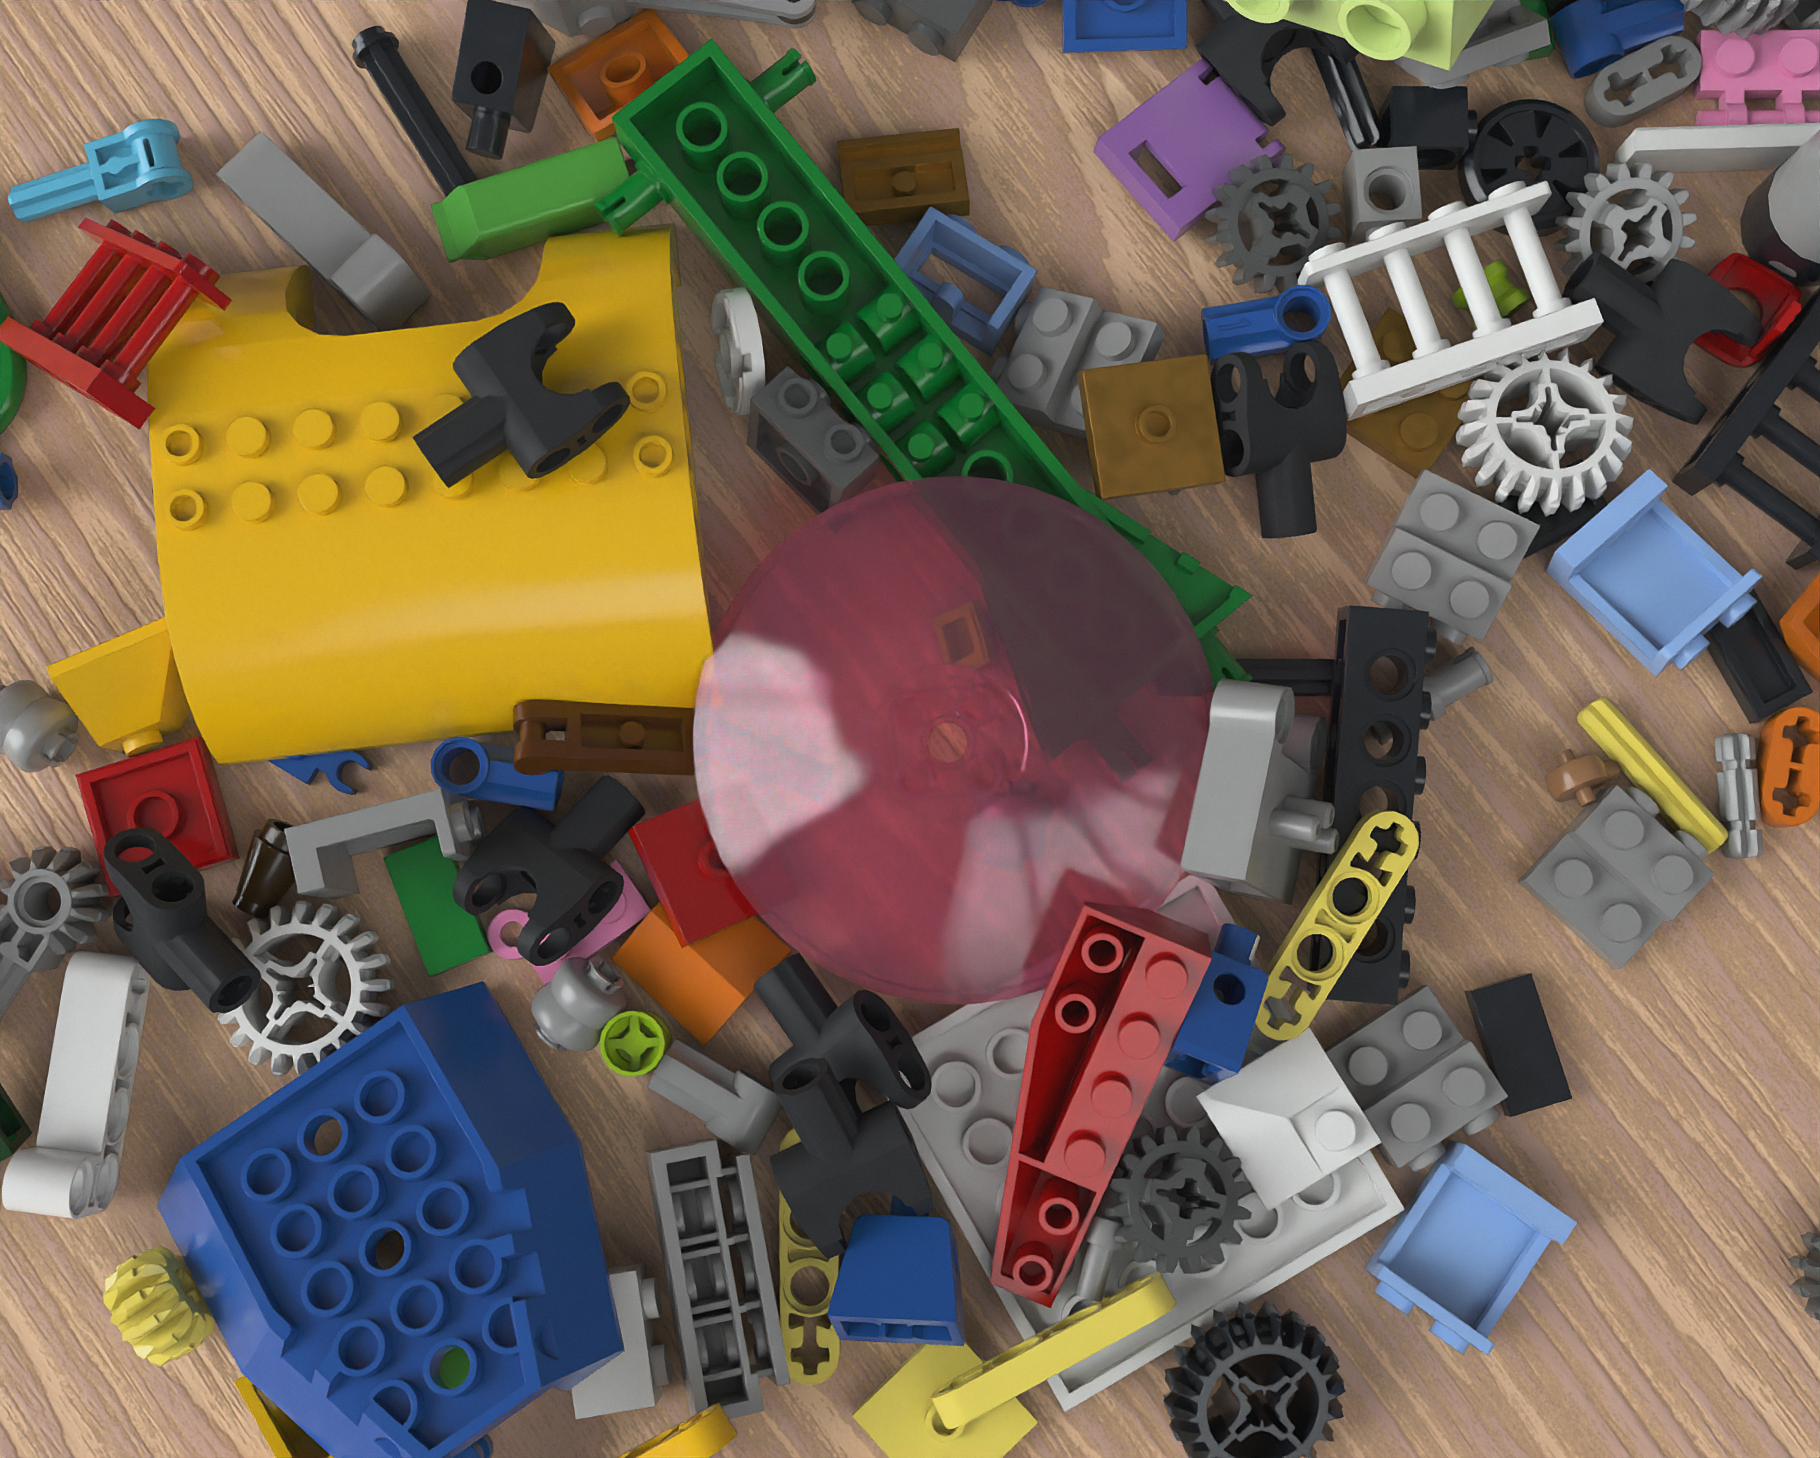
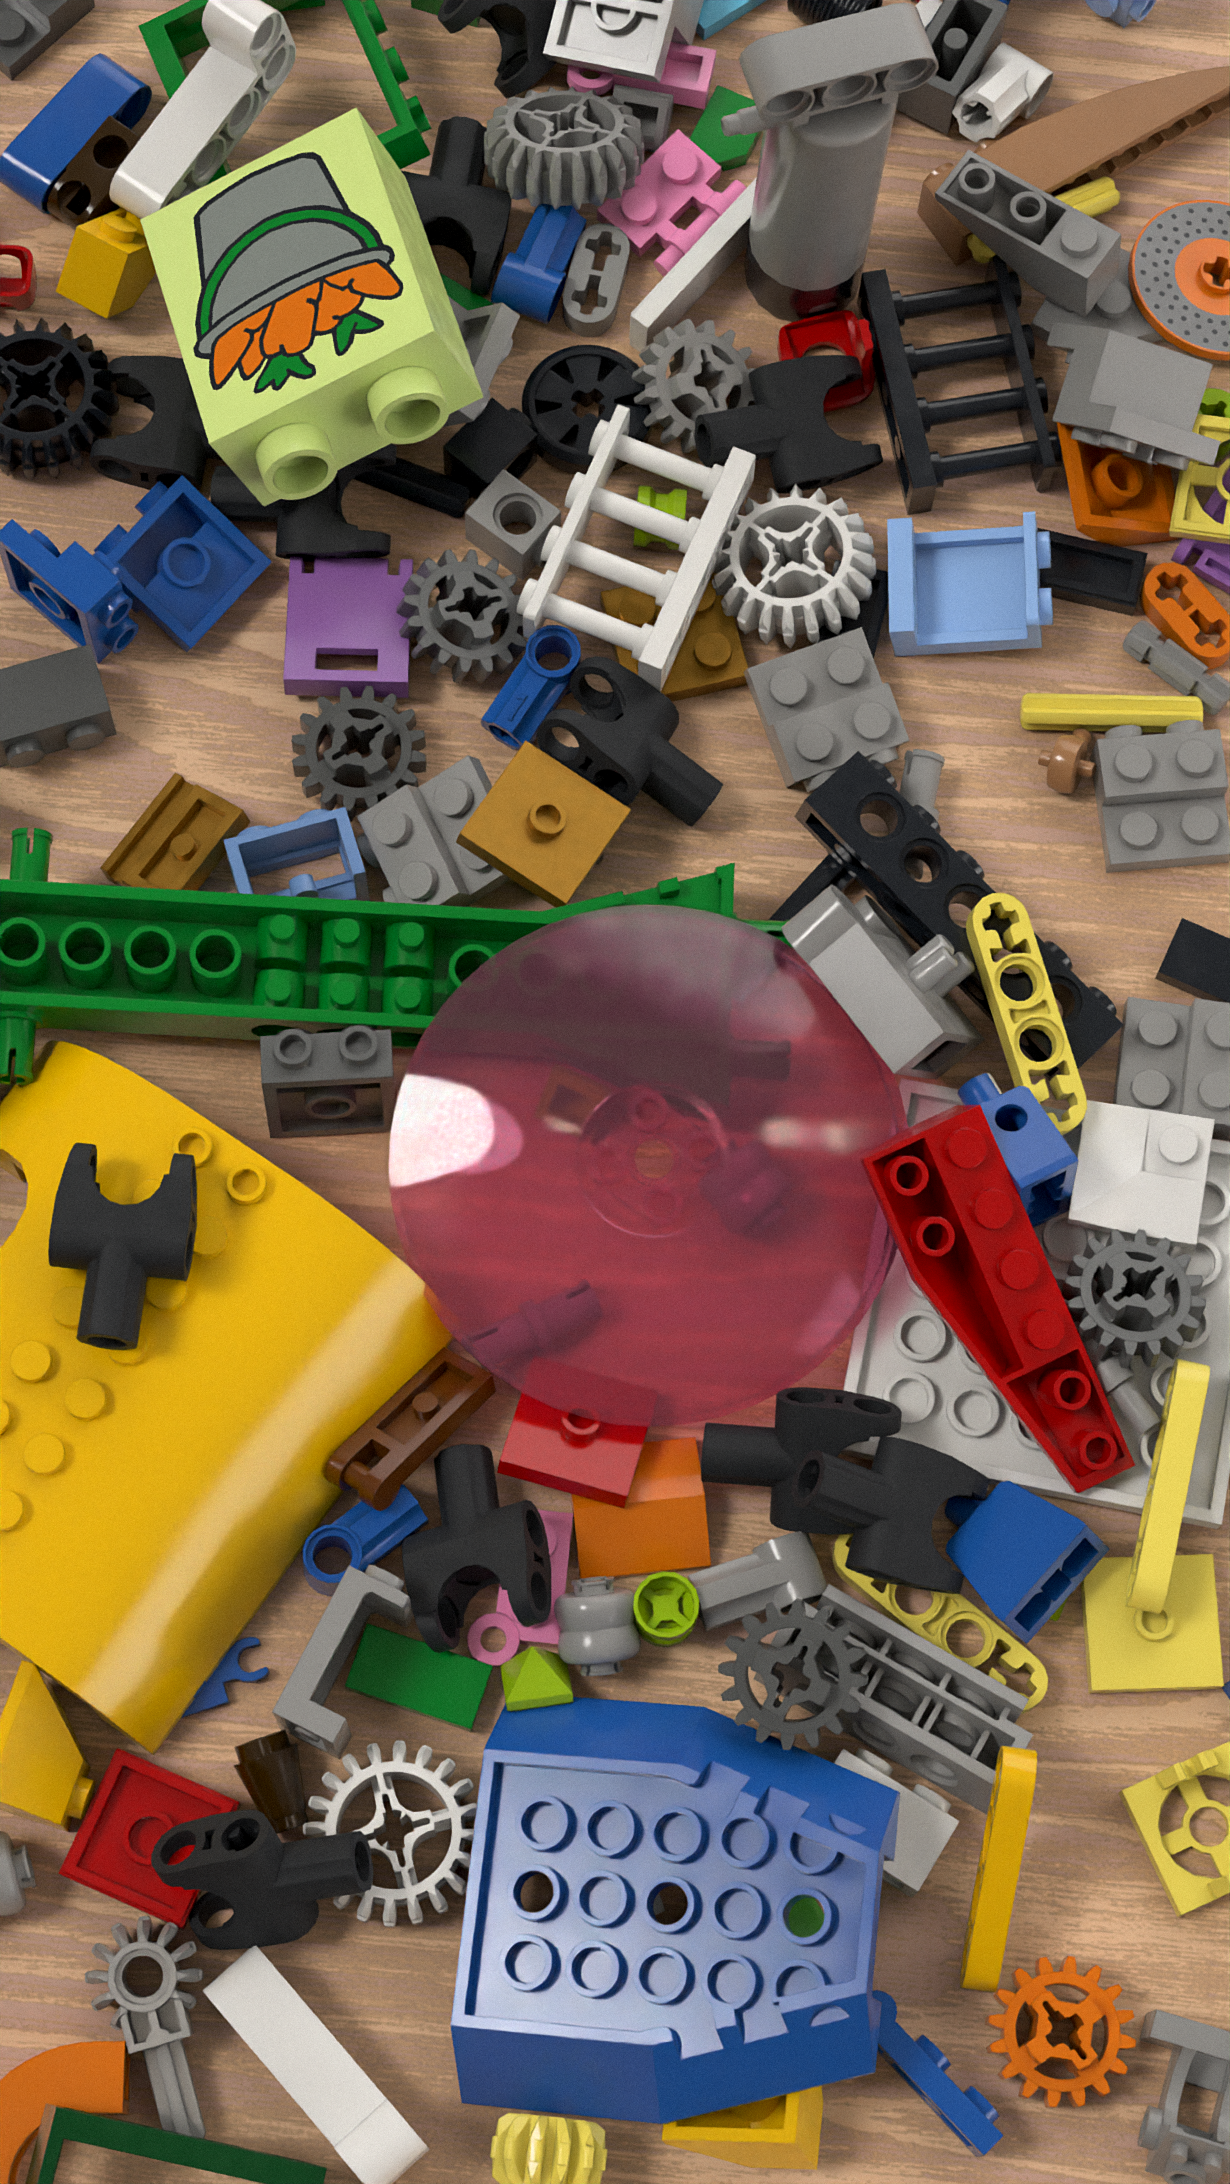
camera: 55 degrees left, 10 degrees down
(500, 995) = (535, 1680): none -> lime slope
(636, 1163) = (764, 1659): none -> dark grey gear
(741, 356) = (206, 1069): white tile -> none
(1118, 246) = (364, 727): none -> dark grey gear

